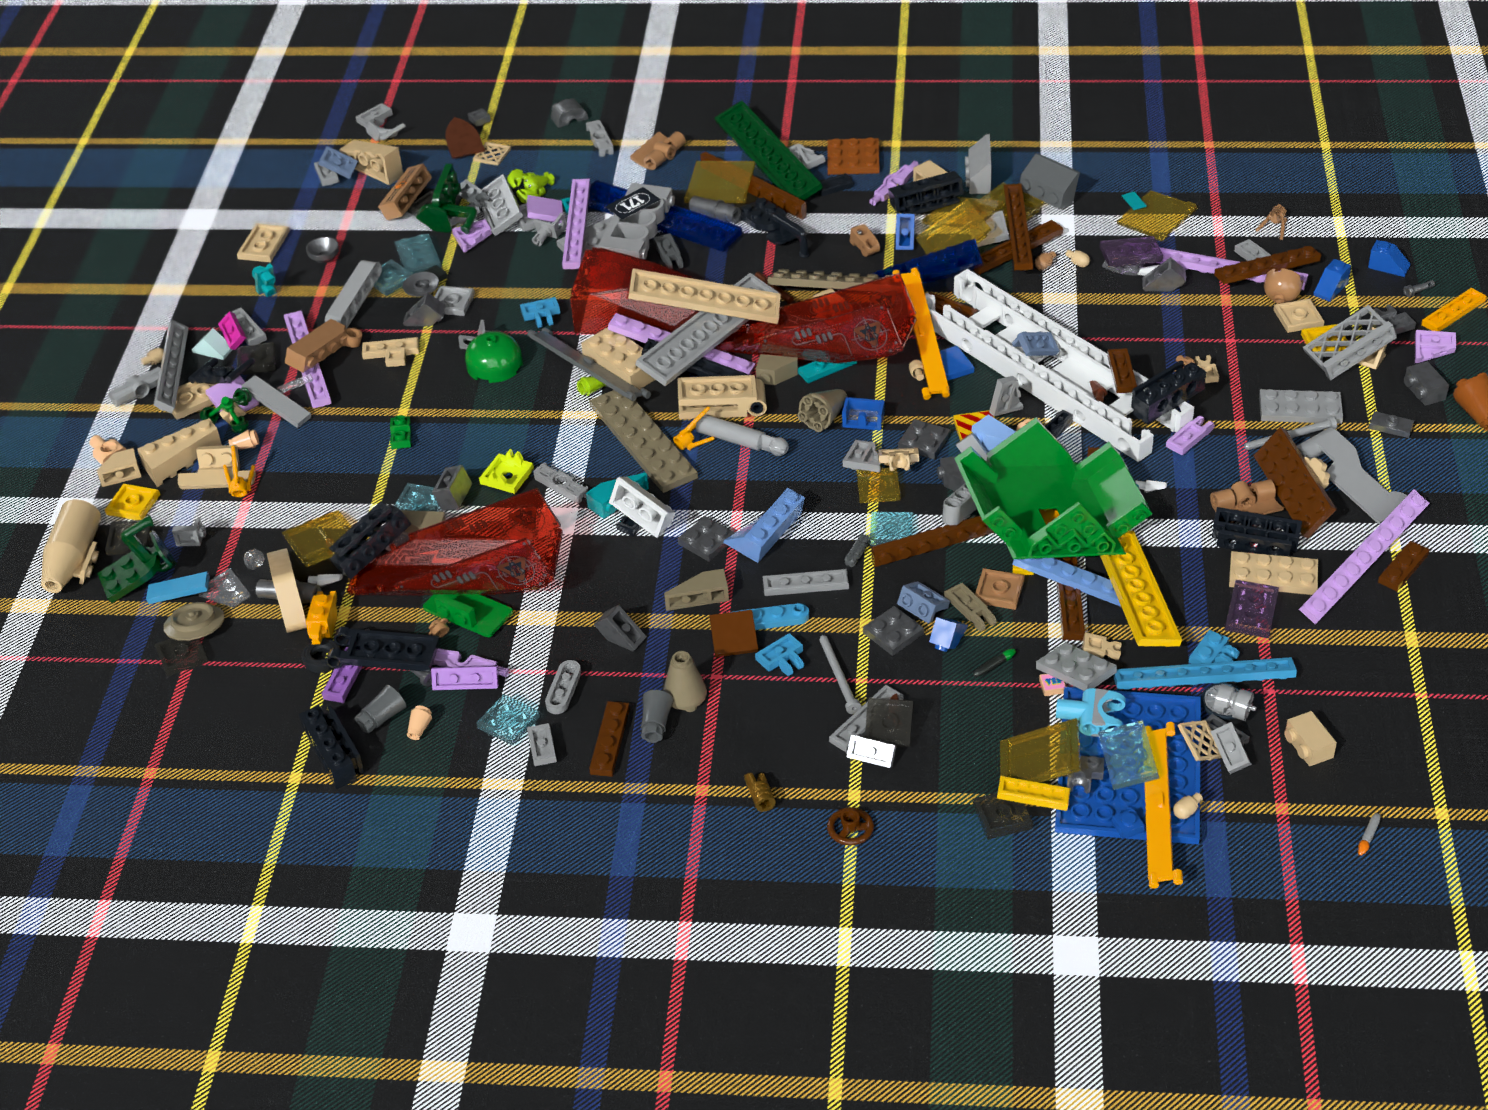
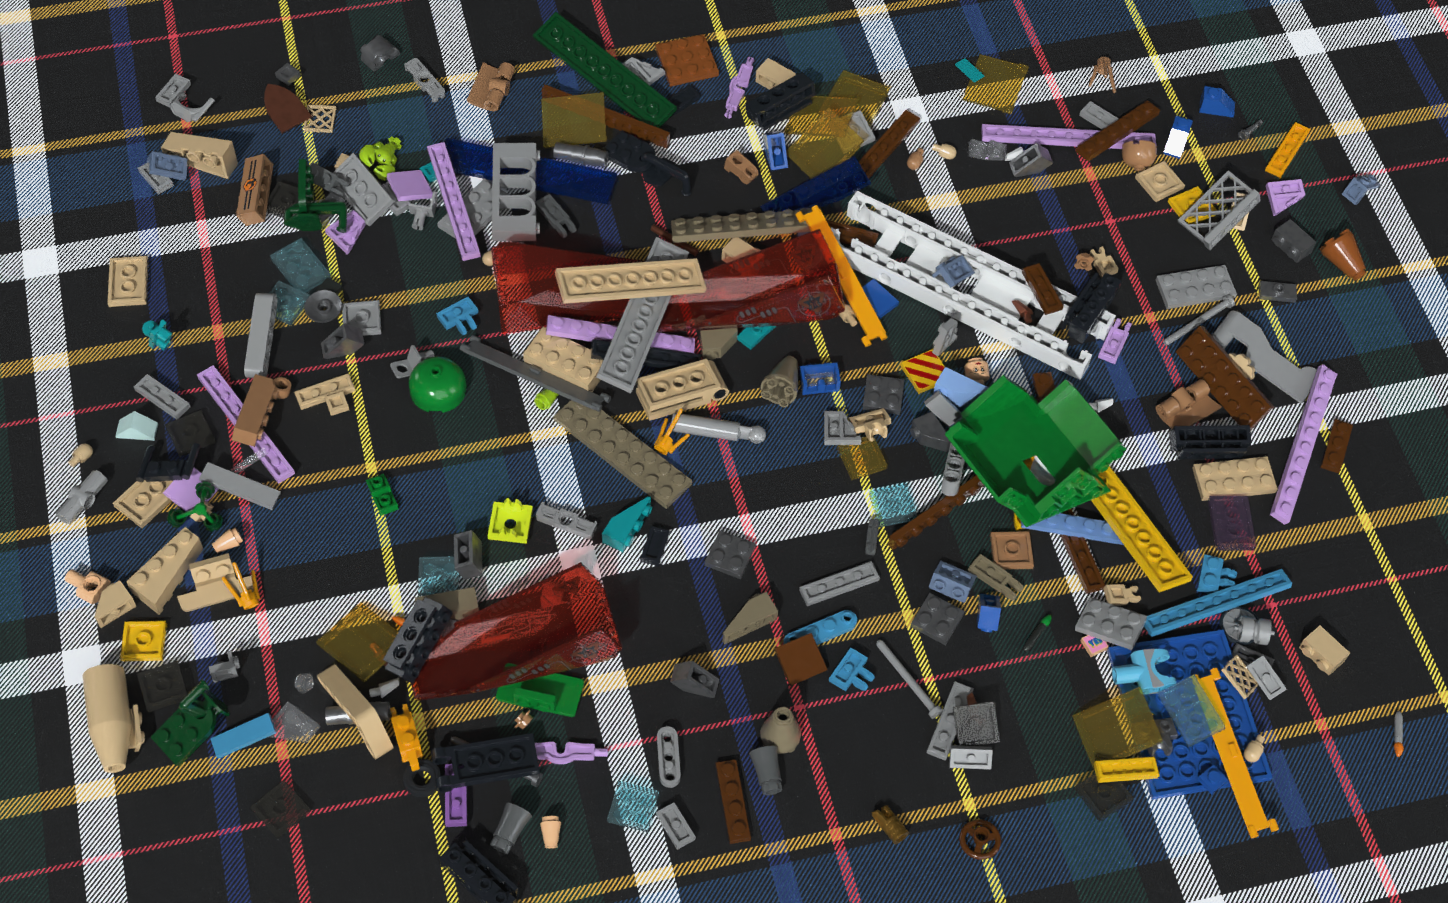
camera: 25 degrees left, 15 degrees up
(171, 366) = (110, 467): light grey plate -> none
(193, 621) = (277, 771): dark tan piece -> none
(232, 330) = (153, 407): dark pink plate -> none
(322, 249) = (198, 275): flat silver piece -> none
(464, 677) = (573, 770): plate -> none
(632, 203) = (505, 169): black sticker -> none
(641, 506) = (663, 538): white slope -> none
(765, 531) = (782, 534): medium blue wedge -> none
(979, 167) = (817, 56): light grey slope -> none
(1018, 227) = (881, 127): reddish brown plate -> none
(1050, 181) = (890, 66): dark grey slope -> none
(1059, 423) = (996, 354): black piece -> none
(1131, 251) = (995, 139): clear purple plate -> none
(1400, 322) = (1248, 174): flat silver plate -> none

